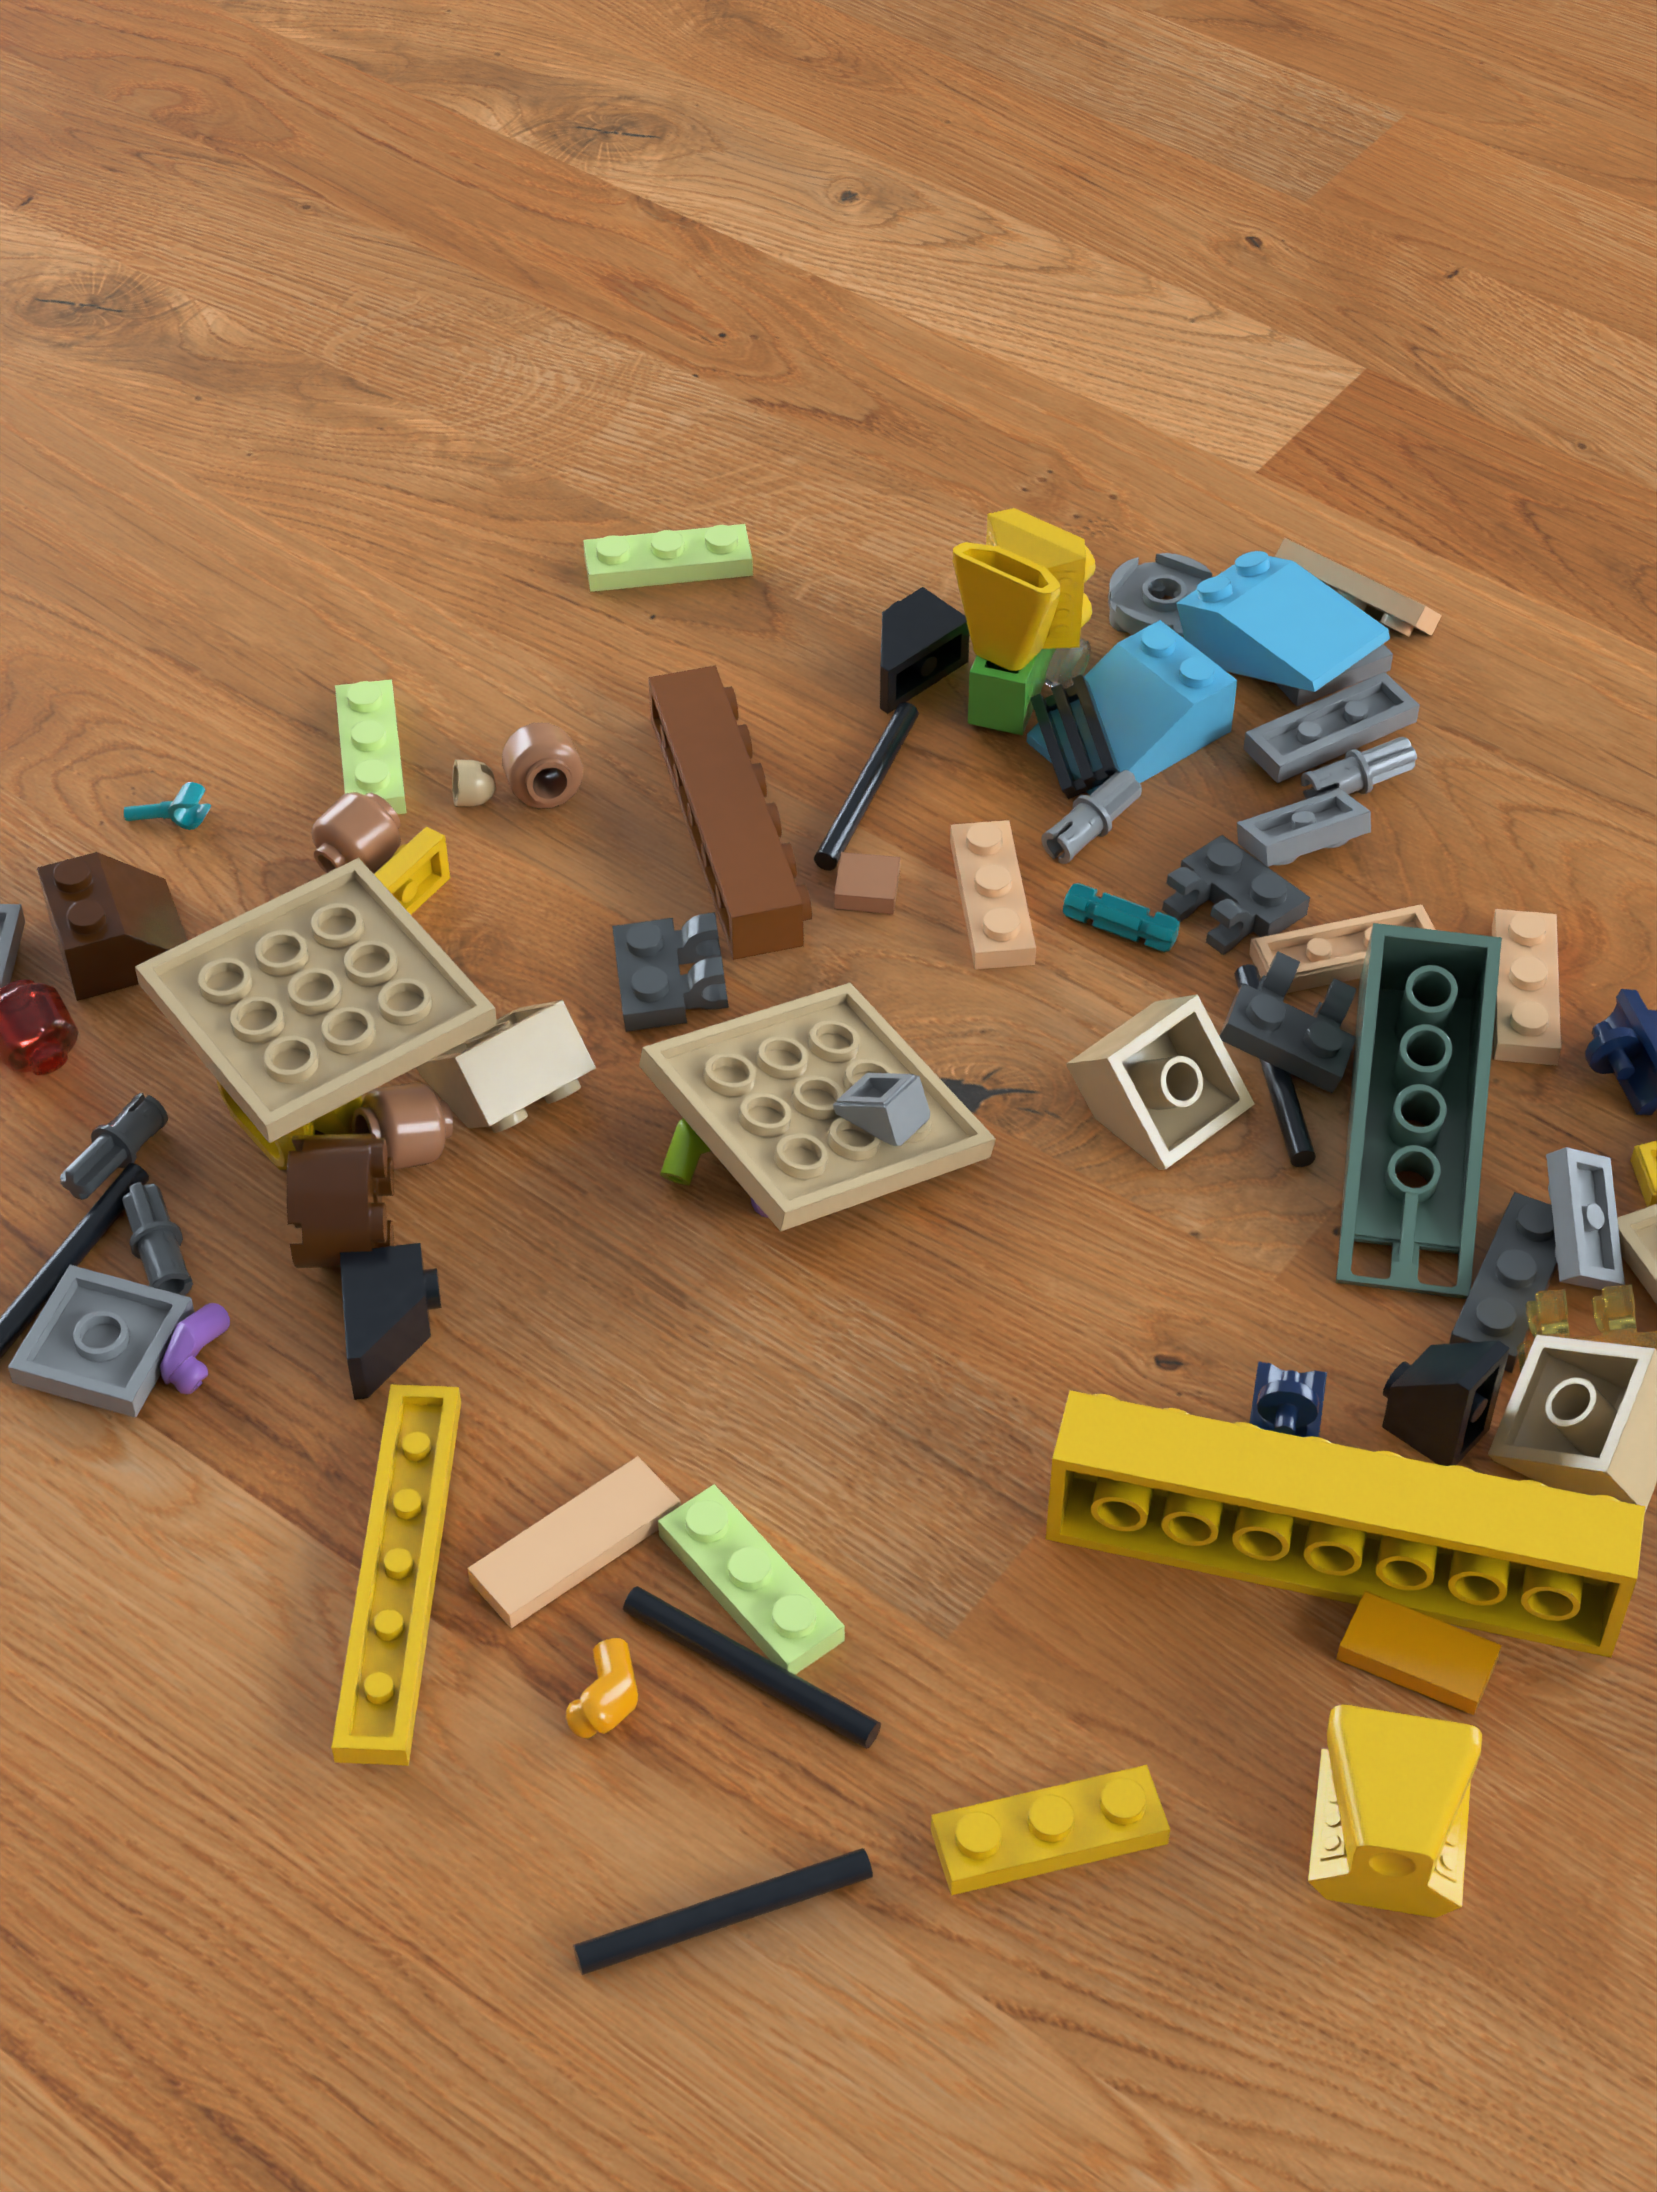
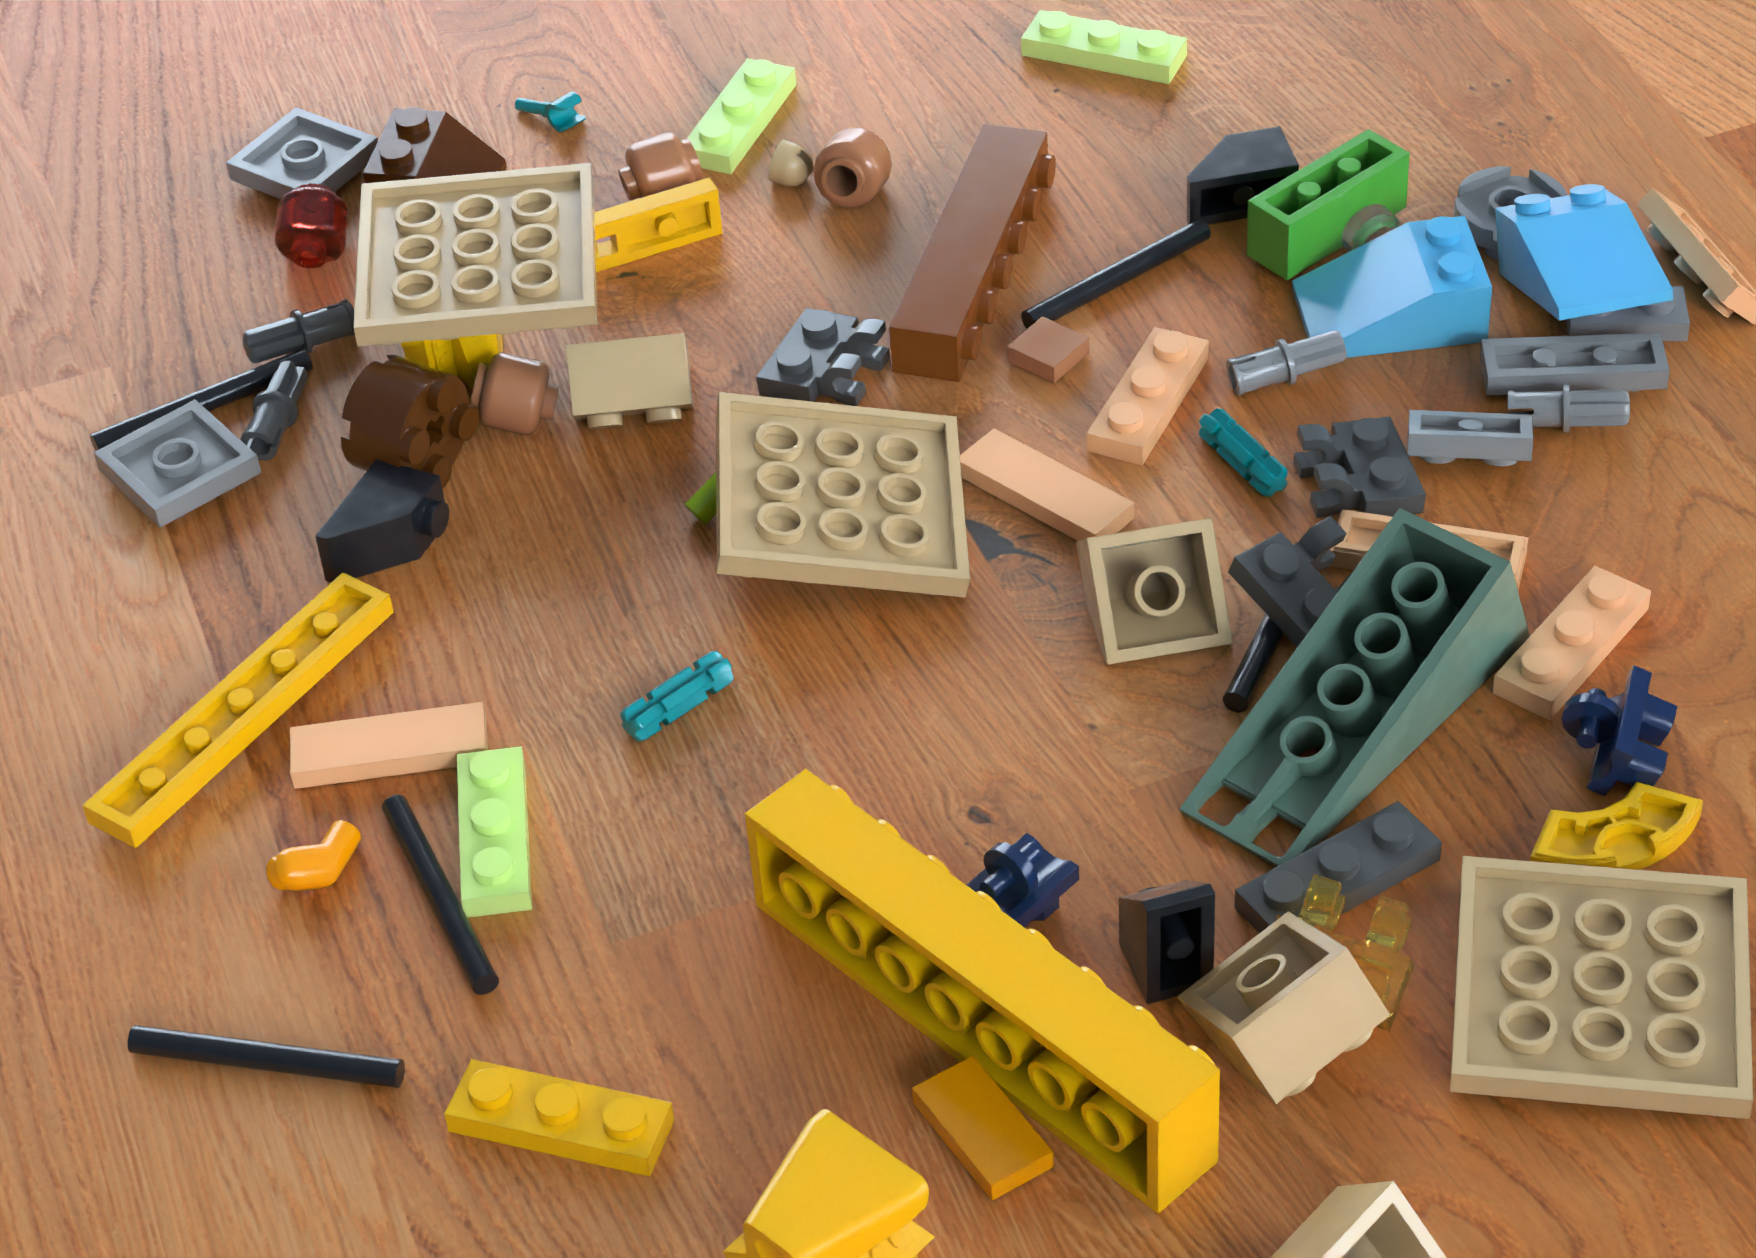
camera: 35 degrees right, 5 degrees down
(189, 1337) = (217, 498): medium lavender arm -> none
(812, 1368) = (676, 696): none -> teal axle
(886, 1106) = (886, 514): light grey slope -> none
(978, 1021) = (1044, 487): none -> light nougat tile
(1023, 588) = (1320, 138): yellow piece -> none
(1061, 700) = (1312, 291): black tile -> none
(1584, 1219) = (1430, 841): light grey plate -> none

